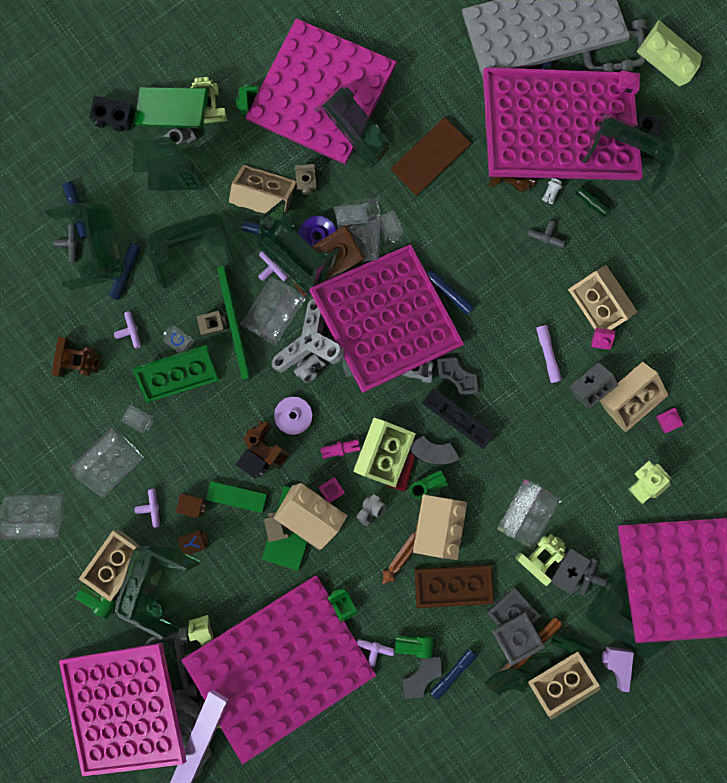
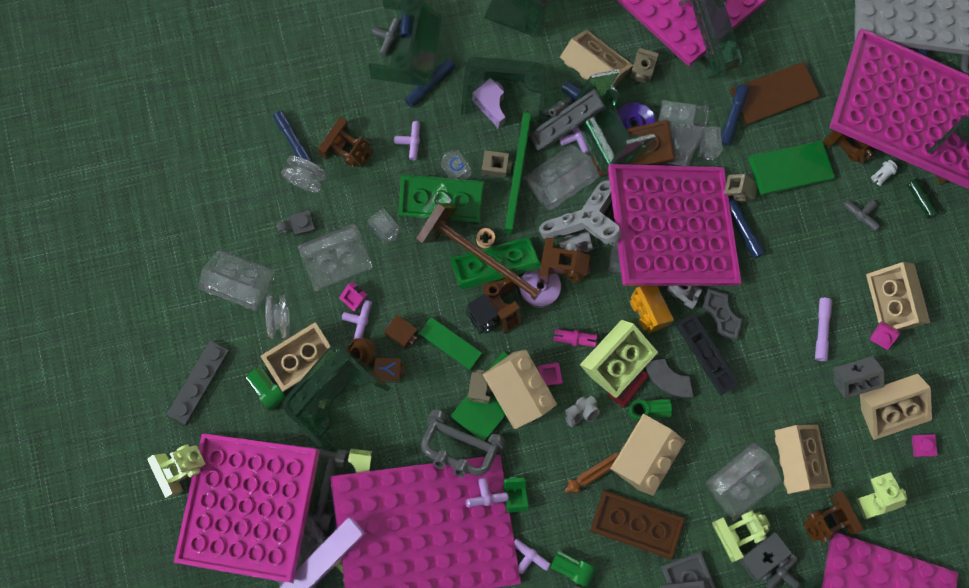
camera: 15 degrees right, 10 degrees down
(36, 379) = (286, 127): none -> dark blue piece
(37, 618) = (198, 383): none -> dark grey plate
(48, 402) = (304, 174): none -> clear wheel
(54, 694) = (185, 462): none -> yellowish green tile
(64, 445) = (300, 223): none -> dark grey plate
(79, 537) = (277, 317): none -> clear wheel
(136, 490) = (353, 296): none -> dark pink plate
(164, 536) = (363, 350): none -> reddish brown plate
(182, 265) = (488, 99): none -> lavender arch
(182, 401) = (438, 223): none -> reddish brown tile
(224, 389) = (480, 234): none -> light nougat bush
(246, 412) = (515, 255): none -> green tile
(247, 248) = (558, 107): none -> dark grey piece
(251, 567) = (461, 467): none -> dark grey bar
(258, 259) = (567, 120): none -> dark grey tile
(318, 386) = (550, 263): none -> reddish brown tile
(319, 620) = (486, 498): none -> lavender piece
(395, 397) = (651, 308): none -> light orange slope
(401, 179) = (730, 126): none -> dark blue piece
(432, 258) = (741, 187): none -> dark tan brick
(469, 221) = (791, 168): none -> green tile
(571, 475) = (802, 458): none -> tan slope
(621, 509) = (841, 514): none -> reddish brown tile

